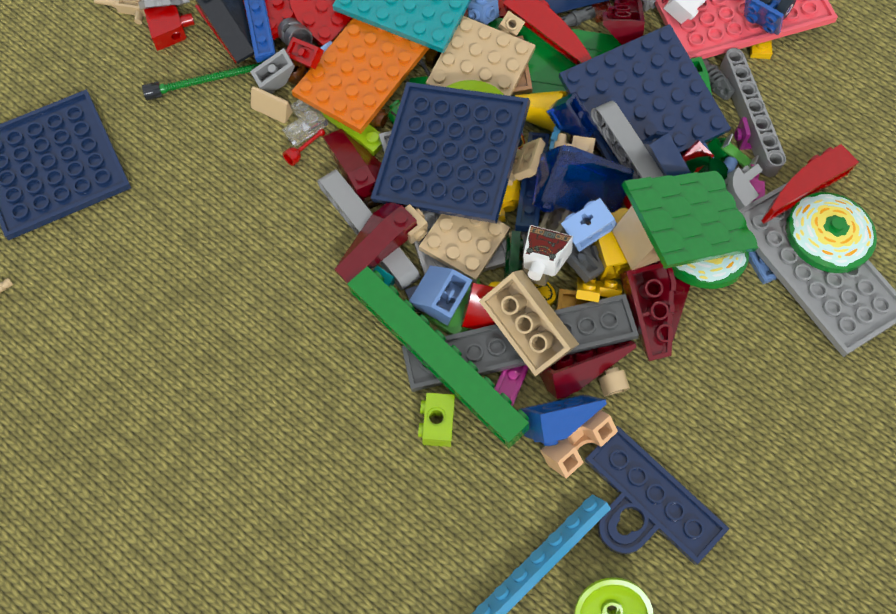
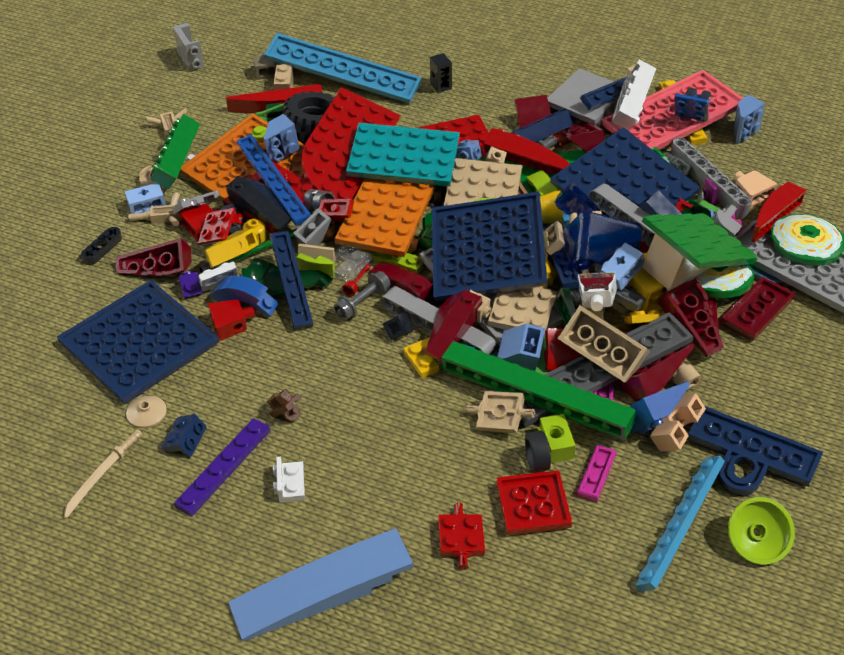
camera: 15 degrees left, 20 degrees down
(31, 262) = (146, 411): none -> tan dish
(46, 41) = (93, 253): none -> black beam
(53, 299) = (184, 435): none -> dark blue bracket
(78, 349) = (222, 467): none -> dark purple plate
(102, 67) = (157, 260): none -> dark red wedge
(122, 531) = (321, 585): none -> medium blue slope
(125, 106) = (190, 284): none -> dark purple bracket
(138, 387) = (289, 481): none -> white bracket
(148, 107) = (211, 278): none -> white plate
(149, 162) = (229, 318): none -> red torso
(164, 294) = (283, 404): none -> reddish brown hips
(175, 135) = (247, 291): none -> blue arch
(180, 71) = (235, 245): none -> yellow slope
(191, 34) = (221, 224): none -> red plate
(213, 127) = (269, 276): none -> dark green animal
(215, 55) = (258, 227): none -> yellow head
(227, 132) = (291, 280): none -> dark blue plate
(266, 118) = (320, 263): none -> lime slope
(290, 512) = (461, 535): none -> red plate
(323, 159) = (346, 308): none -> dark grey piece
(324, 222) = (398, 326): none -> black panel
(329, 261) = (422, 363): none -> yellow plate
(382, 495) = (533, 502): none -> red plate
(389, 369) = (500, 411): none -> tan plate
(407, 435) = (537, 451): none -> black tyre
(466, 475) = (596, 473): none -> dark pink tile
(550, 69) = (541, 183): none -> lime slope
(735, 308) = (757, 308): none -> dark red plate
(799, 139) = (755, 186): none -> light nougat torso
(830, 40) = (747, 118): none -> medium blue slope

